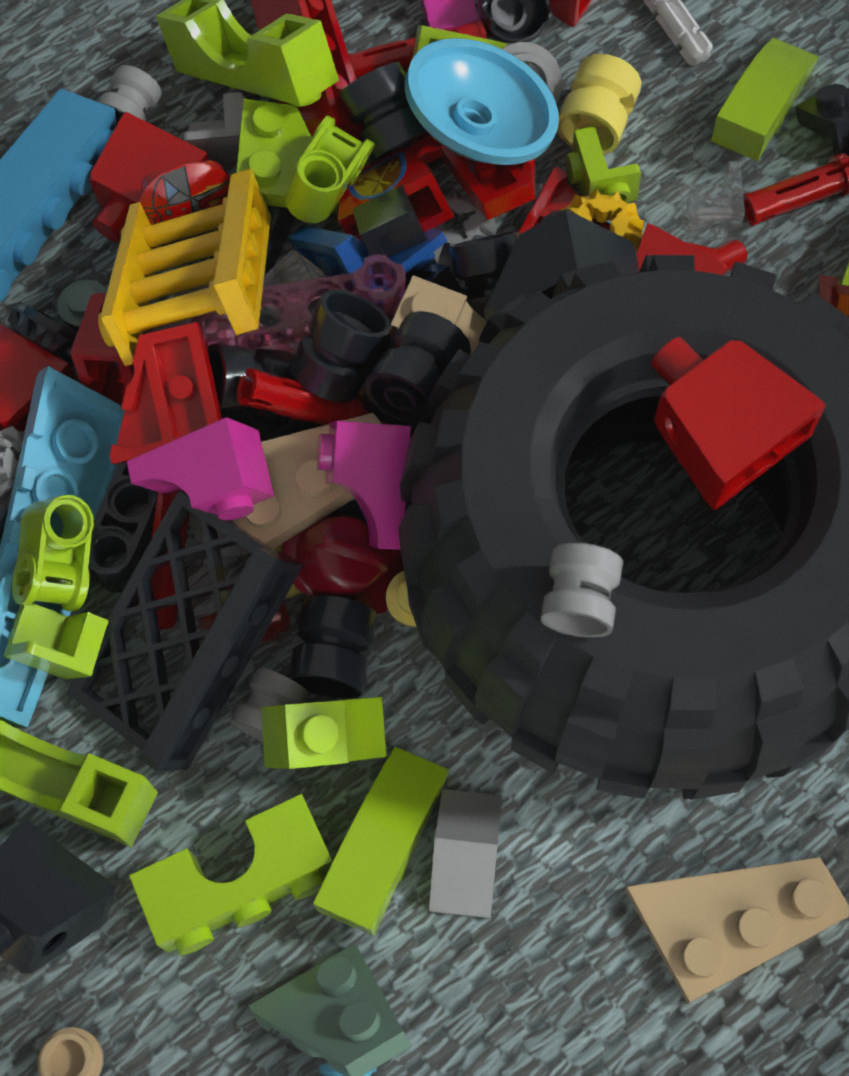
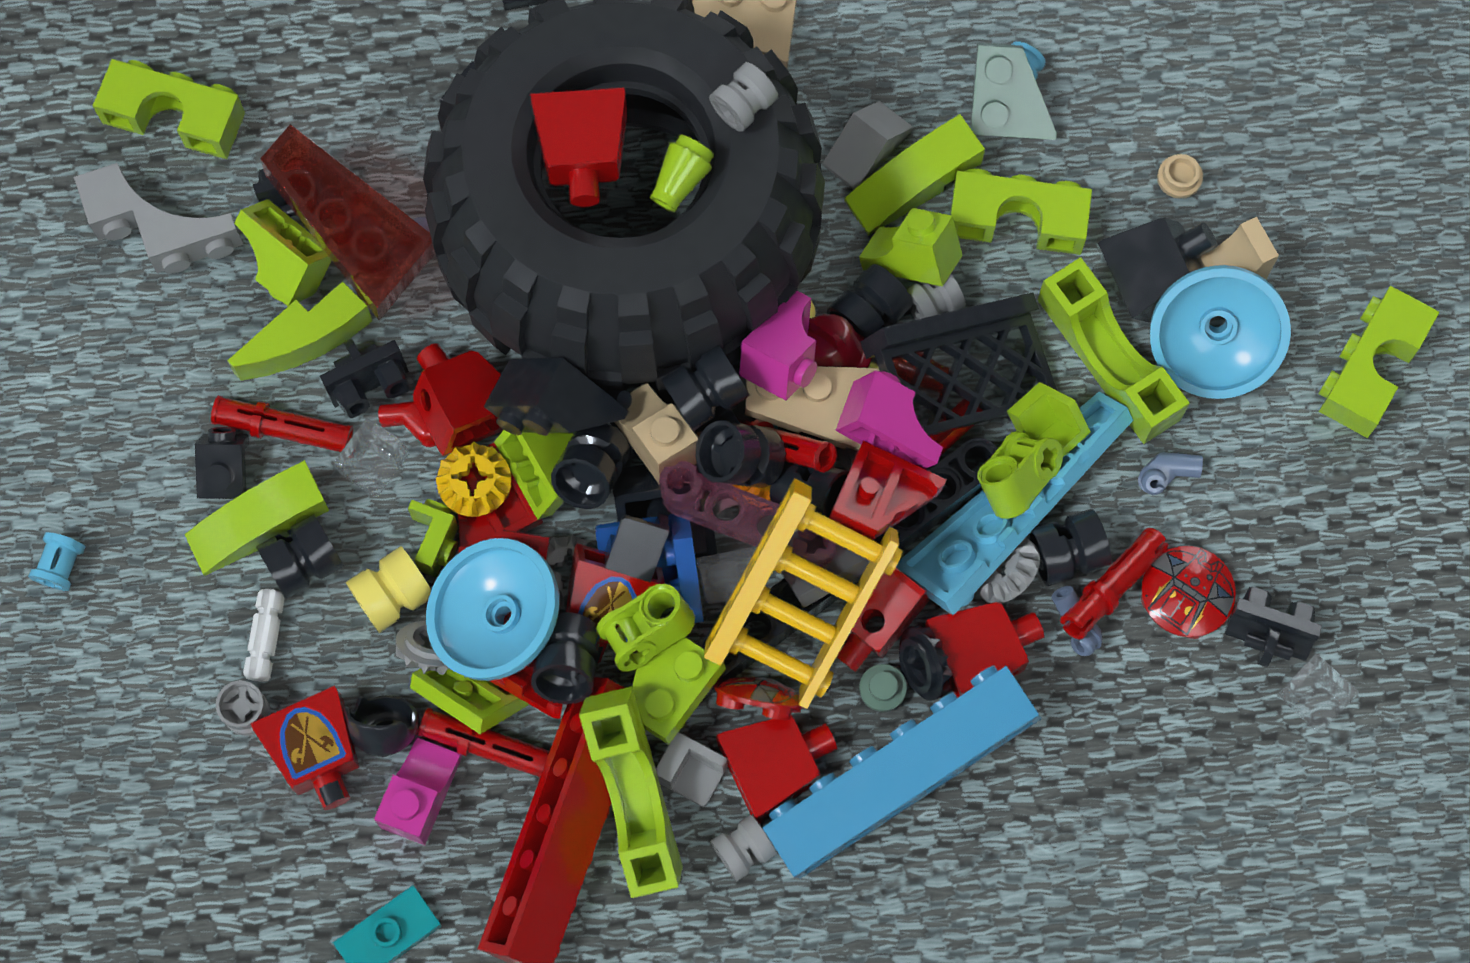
camera: 150 degrees left, 5 degrees up
(588, 469) = (681, 171): none -> lime cone
(700, 81) = (299, 556): none -> black wheel
(790, 244) = (364, 371): none -> black hips

